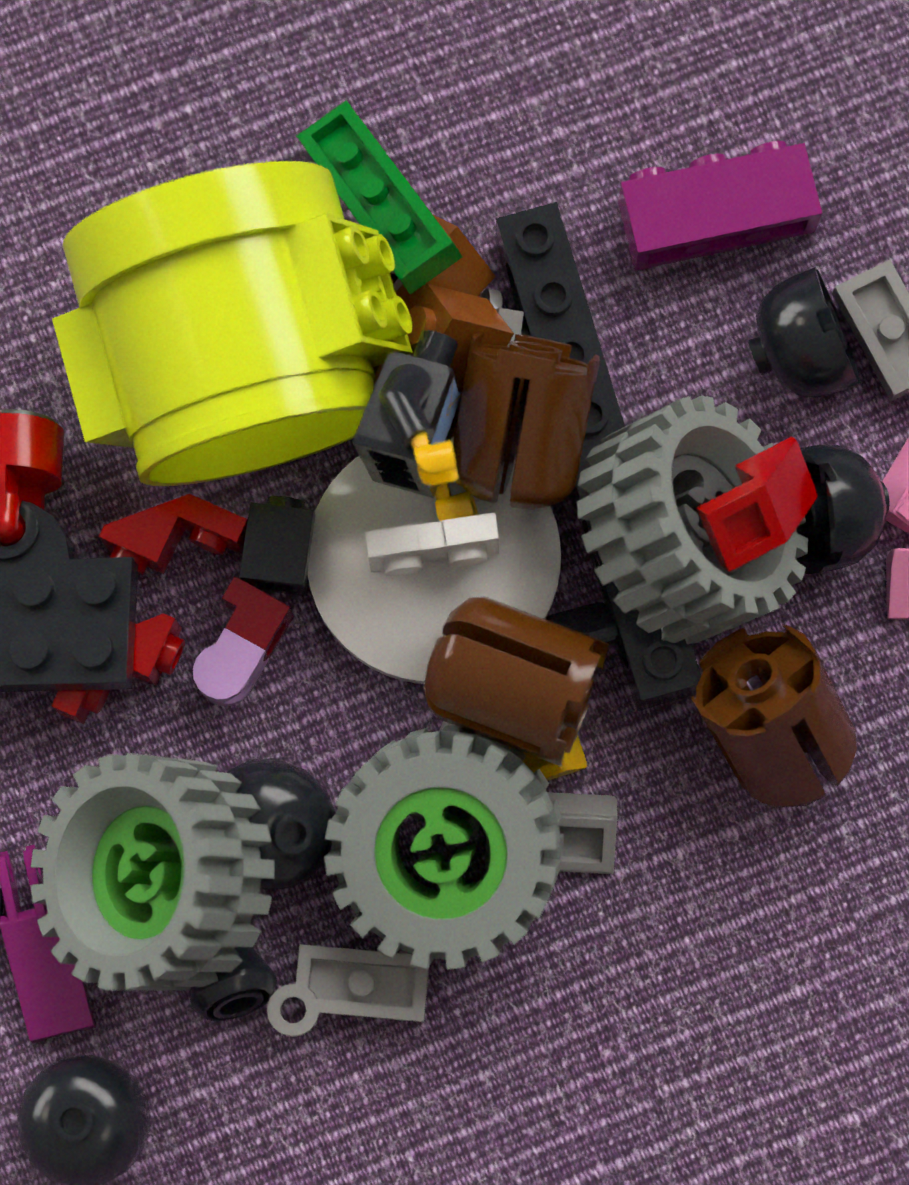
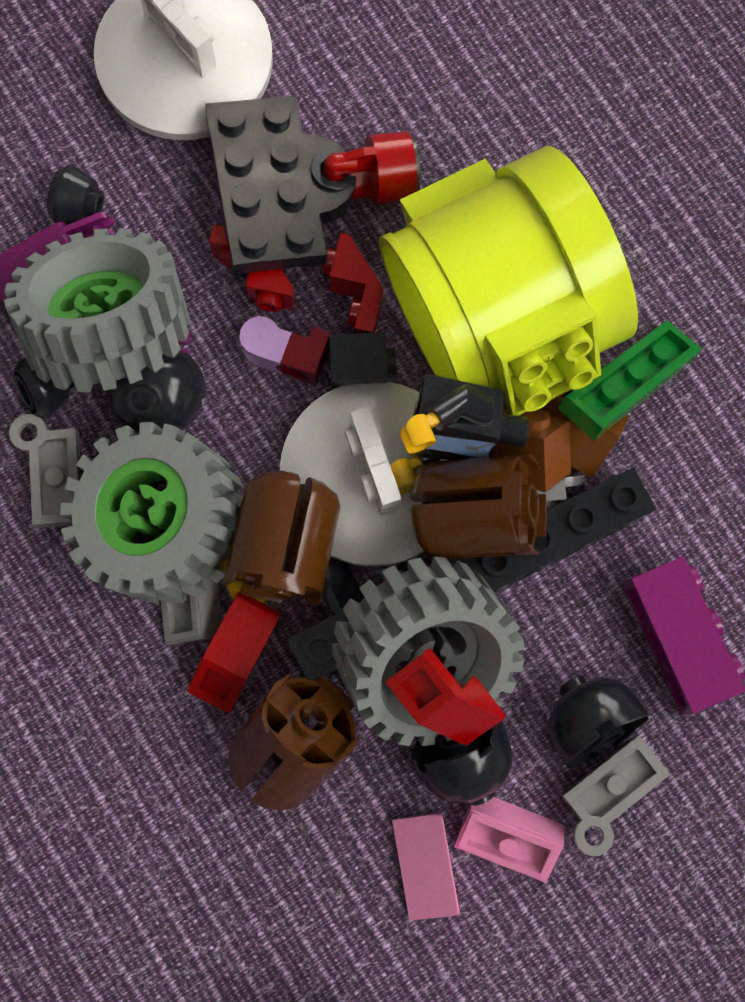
camera: 70 degrees right, 0 degrees up
(642, 778) = (233, 652): none -> red slope

